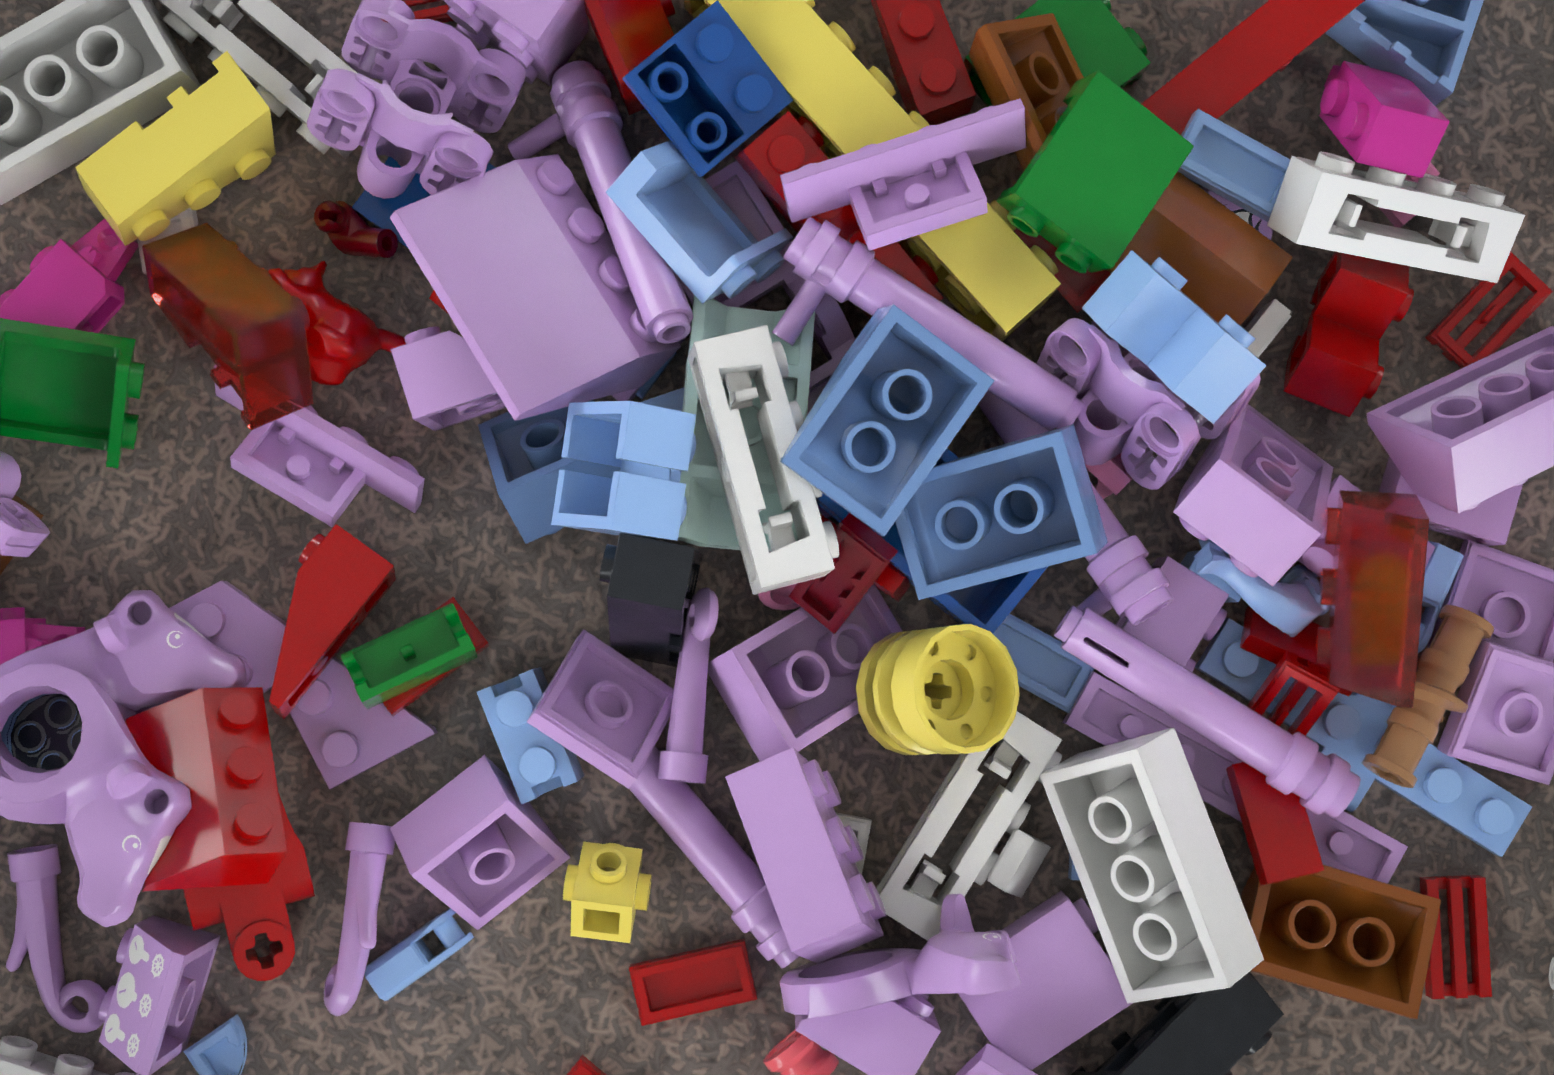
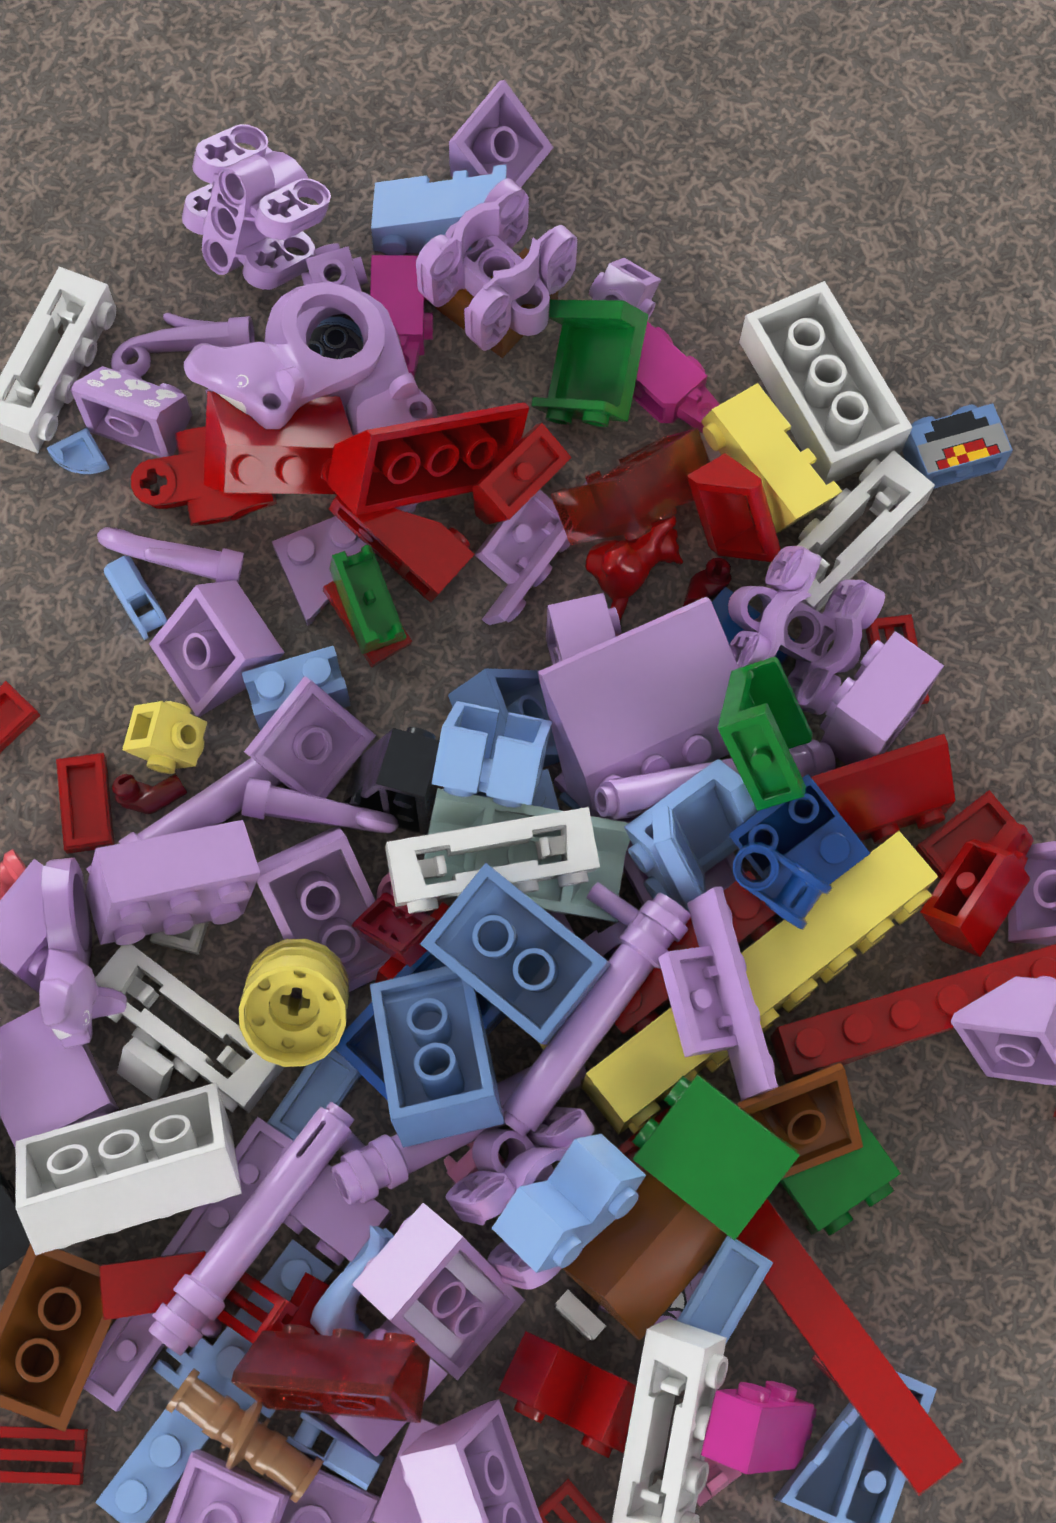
camera: 90 degrees right, 15 degrees down
(216, 592) = (423, 458): none -> red slope
(224, 472) = (518, 475): none -> red tile
(244, 212) = (724, 512): none -> red tile
(552, 141) = (759, 728): none -> green panel
(681, 908) = (144, 797): none -> dark red arm
(736, 234) = (677, 854): none -> light blue tile
(772, 99) = (782, 884): none -> blue piece

